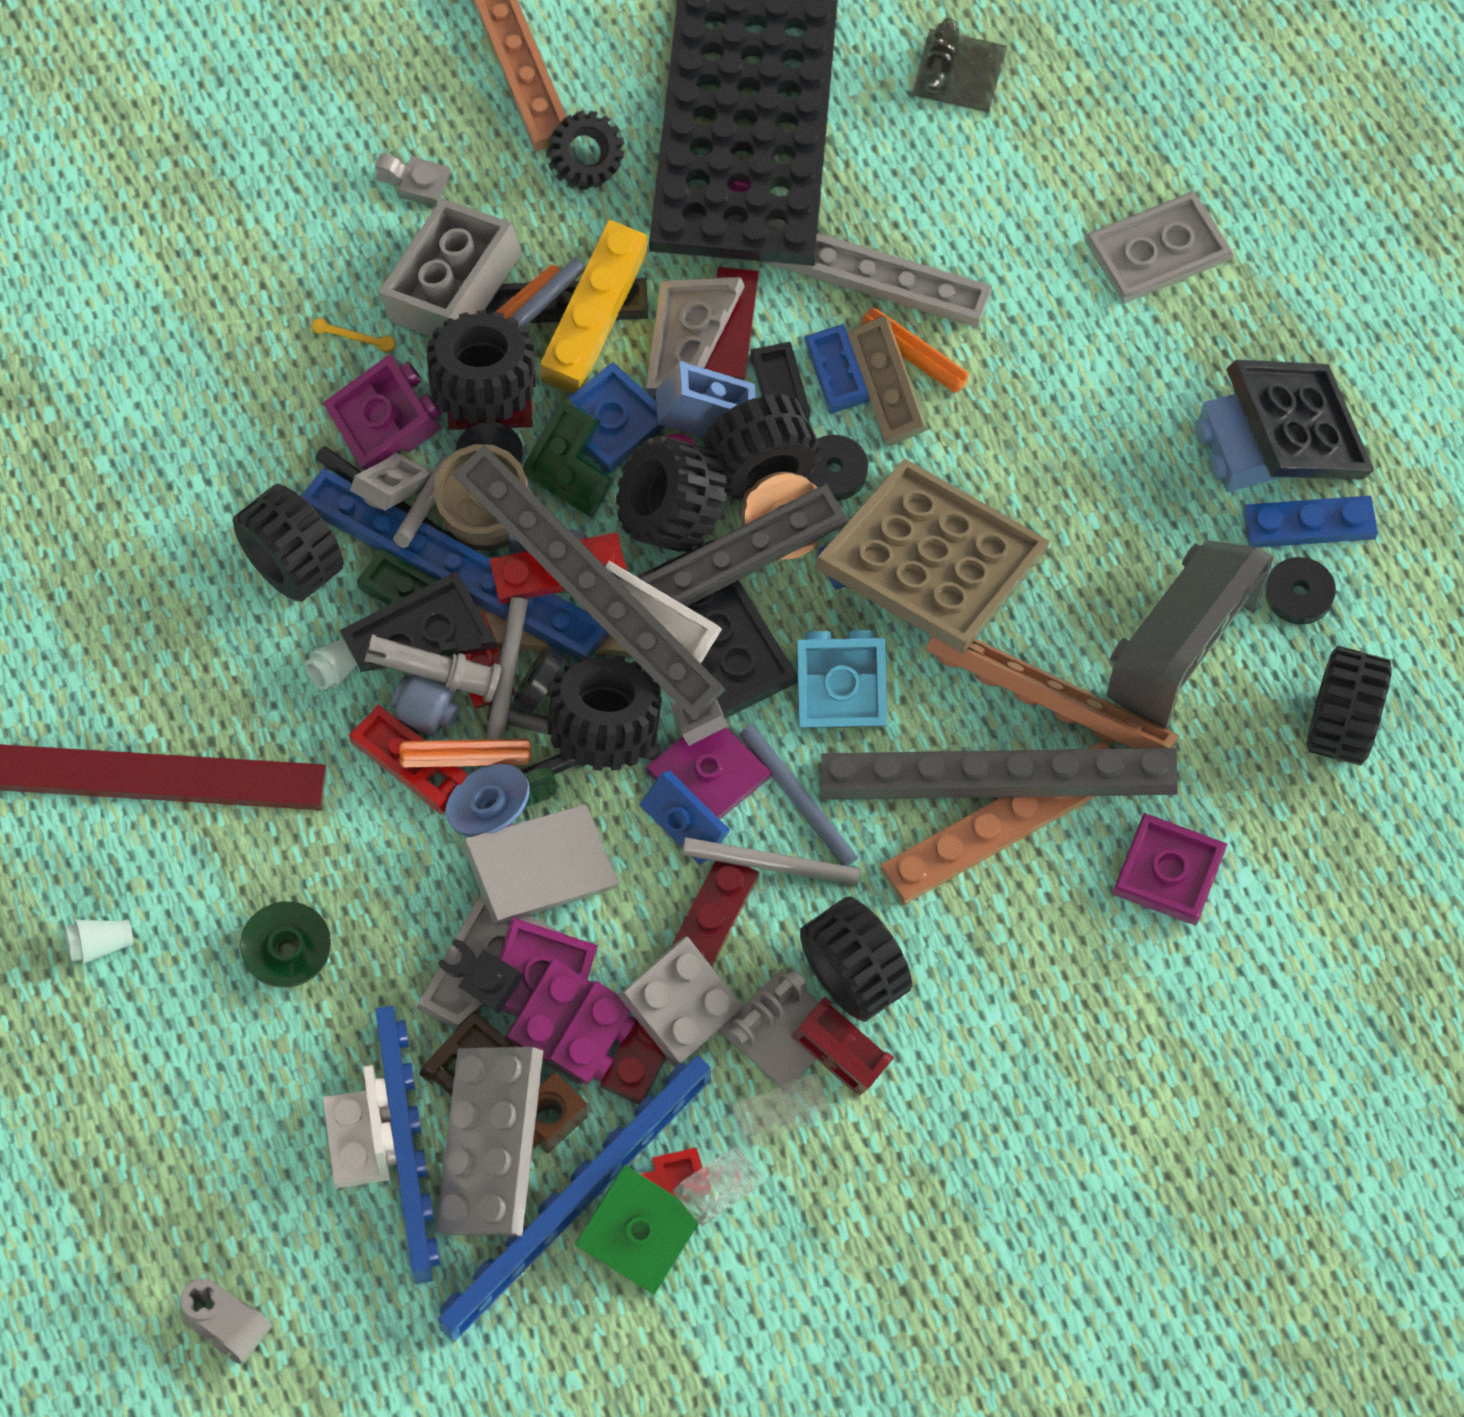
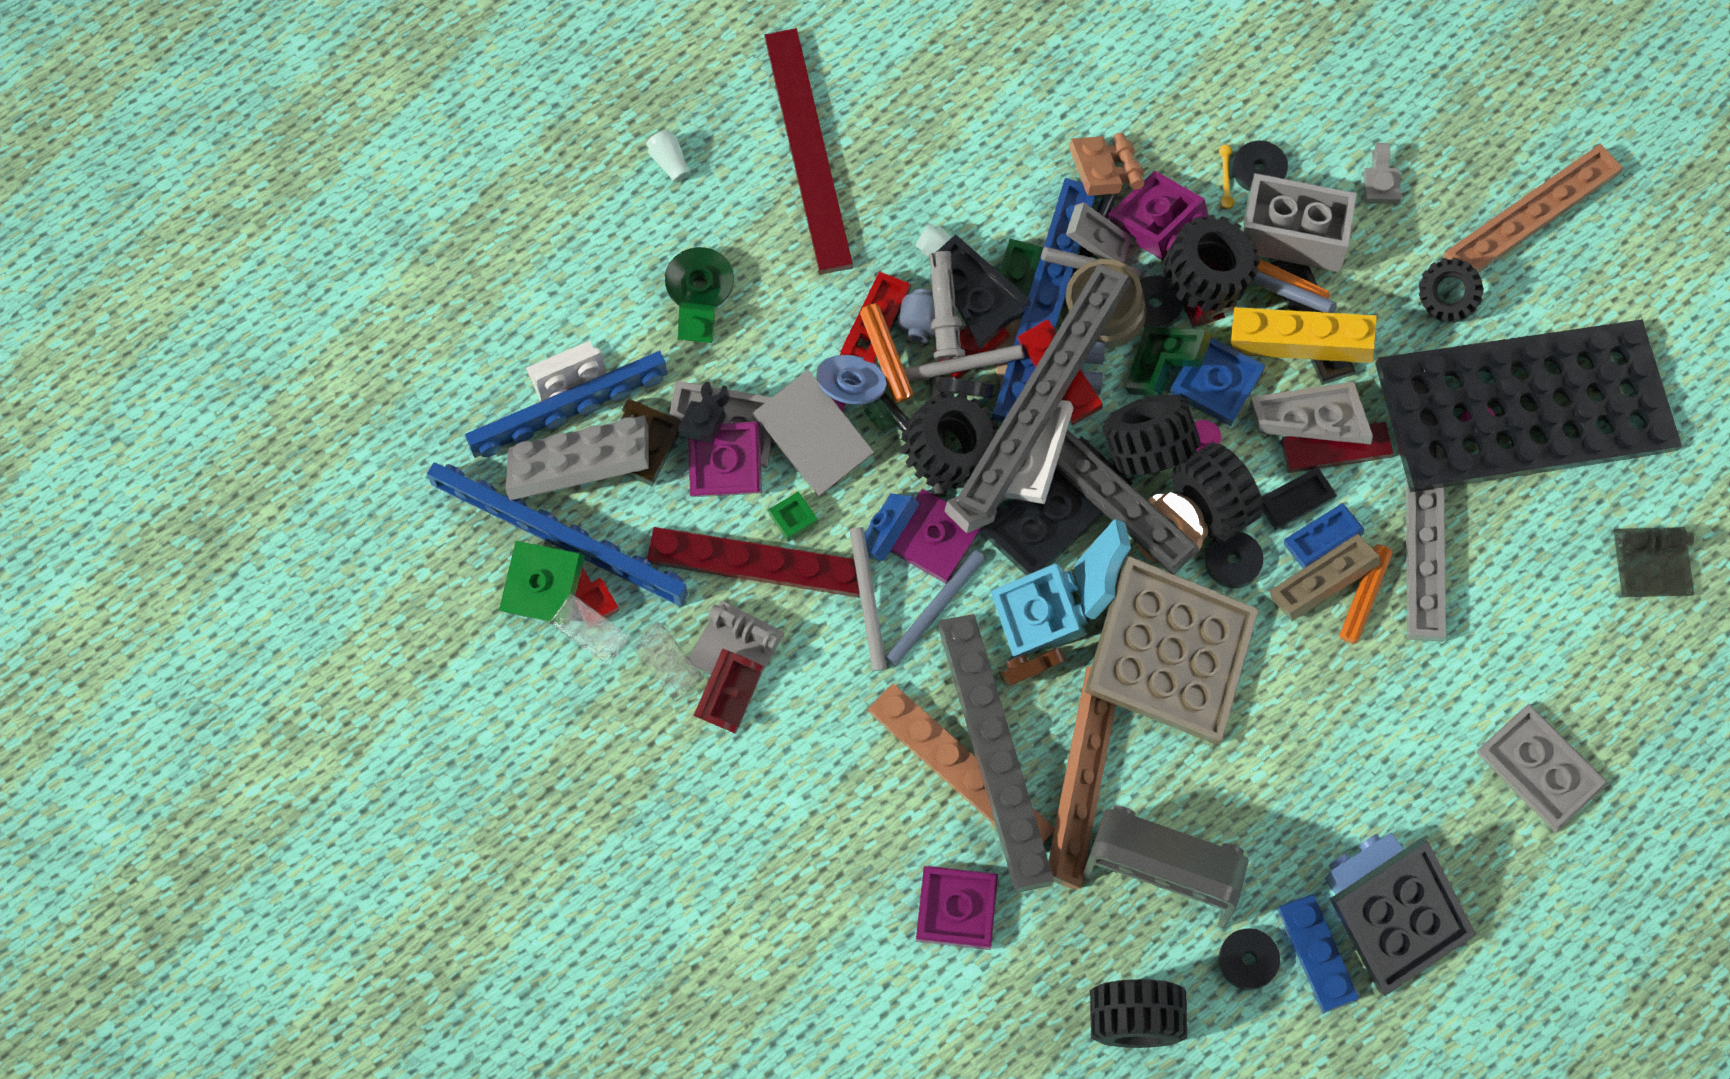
camera: 75 degrees right, 5 degrees up
(229, 1324) = (403, 328): light grey piece -> none
(288, 542) = (1015, 176): black tyre -> none
(296, 460) = (1097, 167): none -> nougat plate
(343, 962) = (696, 322): none -> green plate
(349, 280) = (1258, 153): none -> black piece
(558, 1096) = (623, 510): reddish brown brick -> none
(572, 1023) = (690, 491): magenta plate -> none
(637, 918) = (793, 516): none -> green plate
(680, 1001) = (728, 562): light grey plate -> none
(696, 397) = (1246, 433): medium blue brick -> none
(815, 597) = (1099, 567): none -> medium azure tile
(856, 958) = (794, 676): black tyre -> none
(907, 716) = (1022, 668): none -> reddish brown plate

